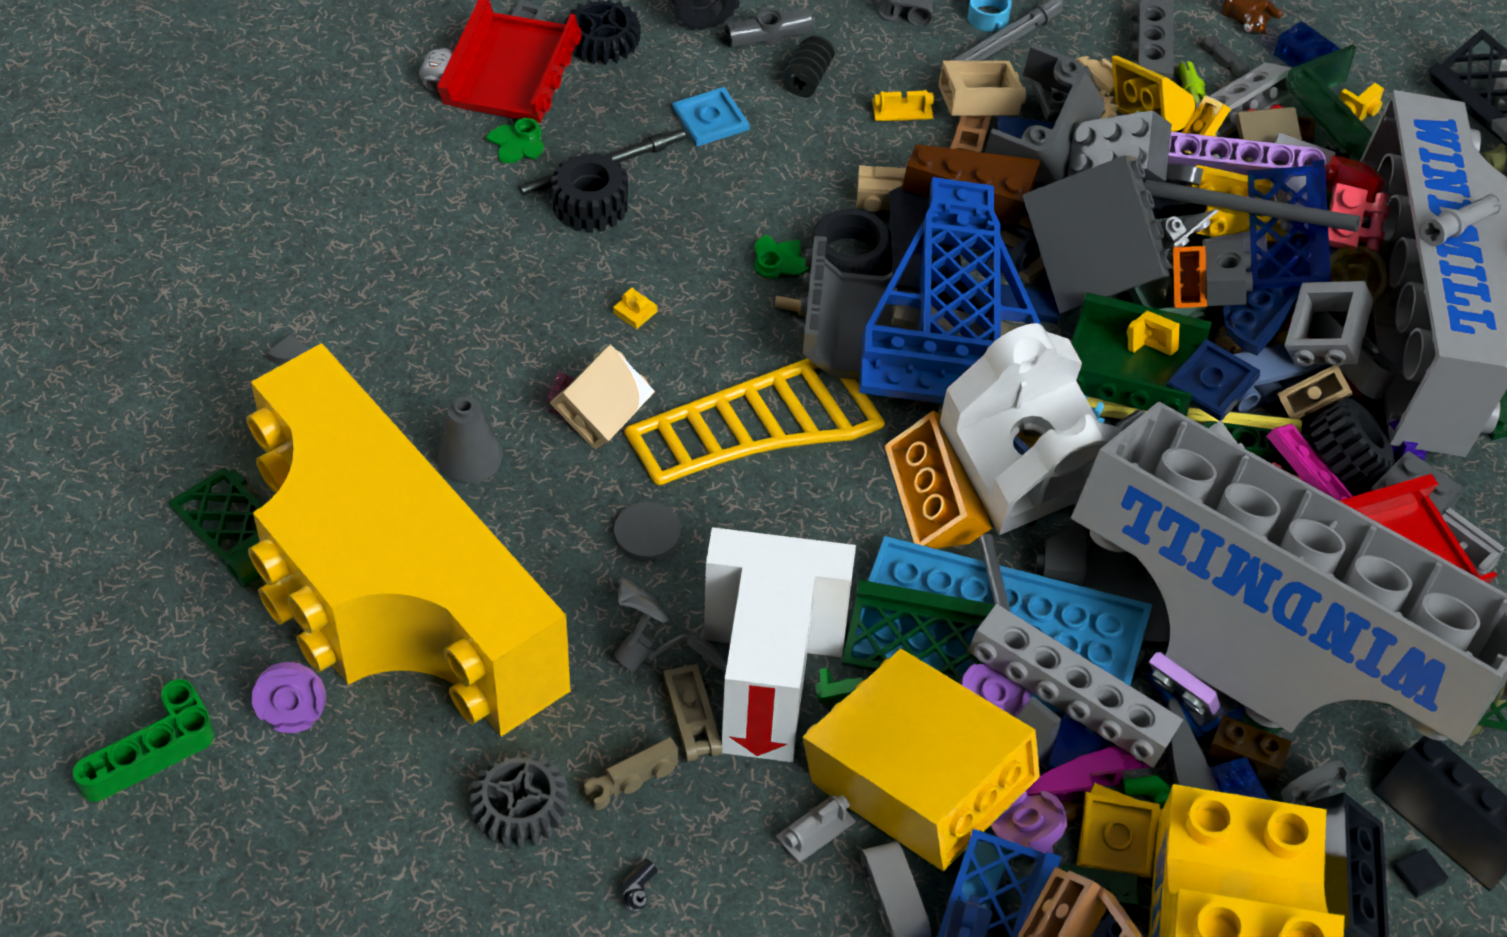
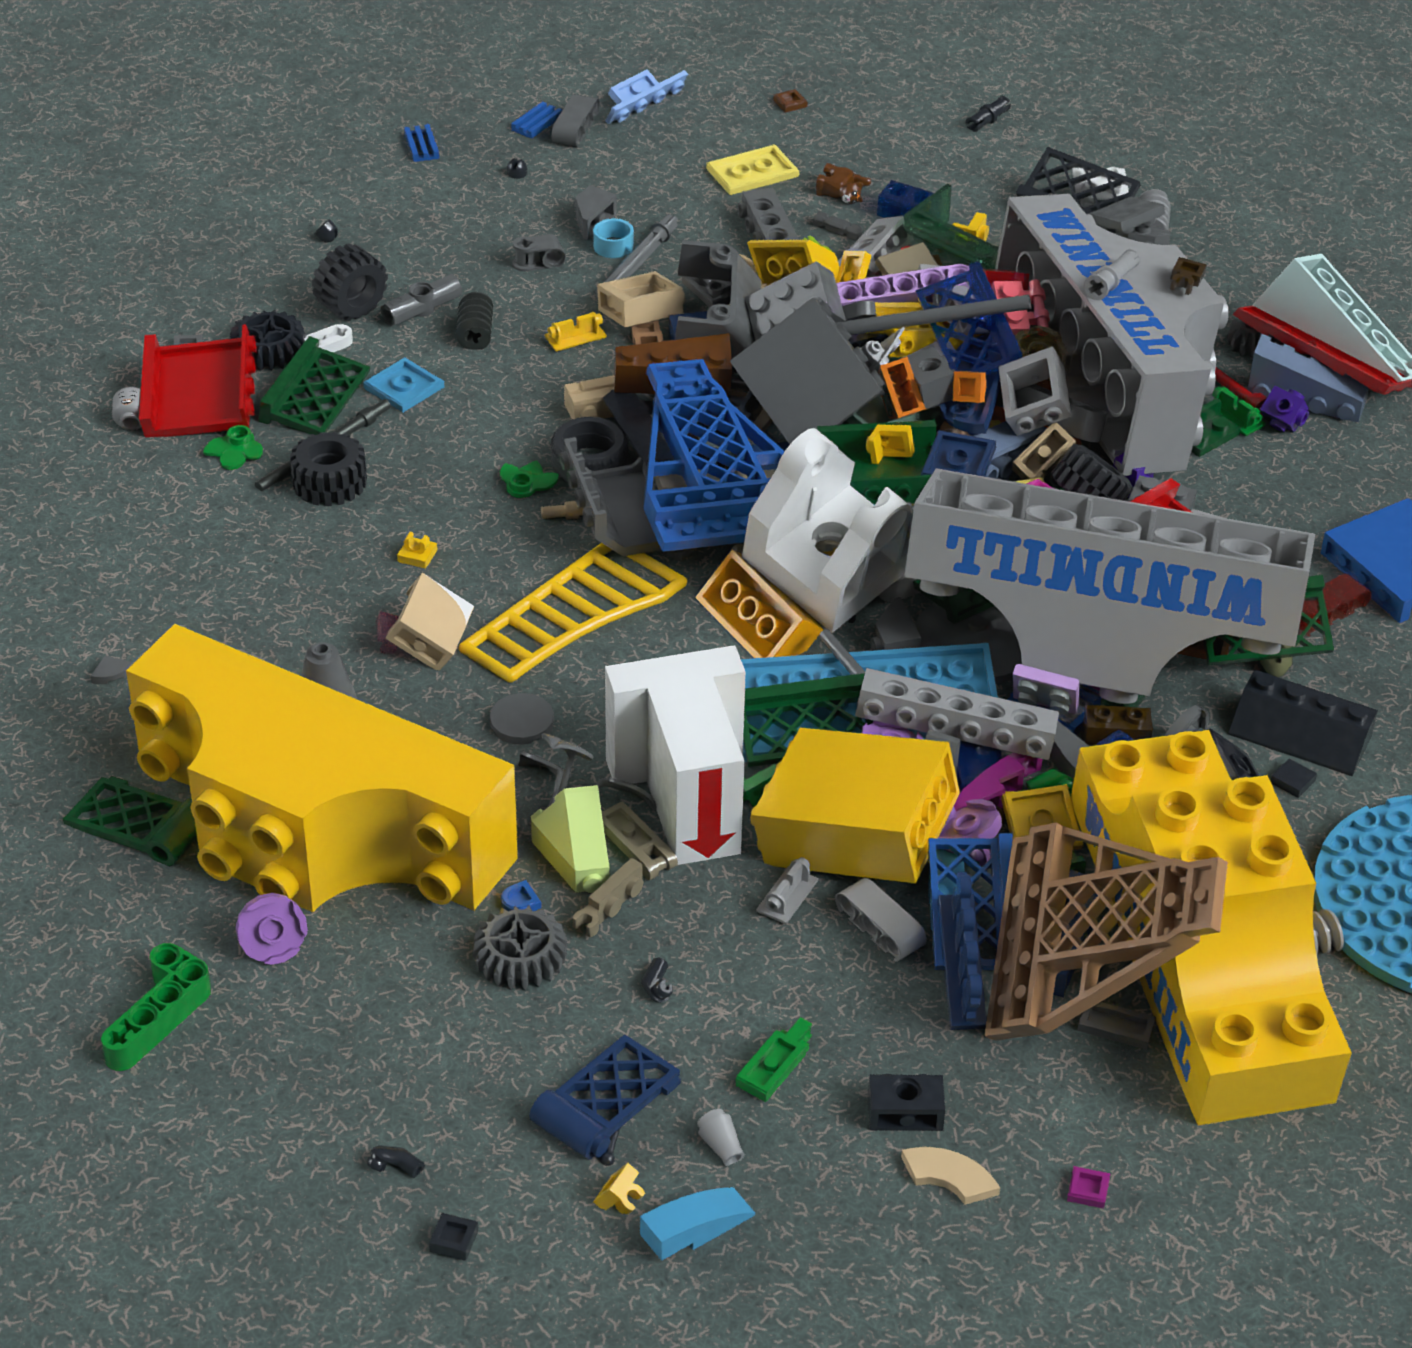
camera: 20 degrees left, 10 degrees down
(548, 740) = (520, 895): none -> blue tile
(600, 86) = (294, 381): none -> dark green fence
(628, 695) = (574, 837): none -> yellowish green slope
(660, 47) = (334, 337): none -> white beam
(1259, 298) = (969, 386): none -> orange tile

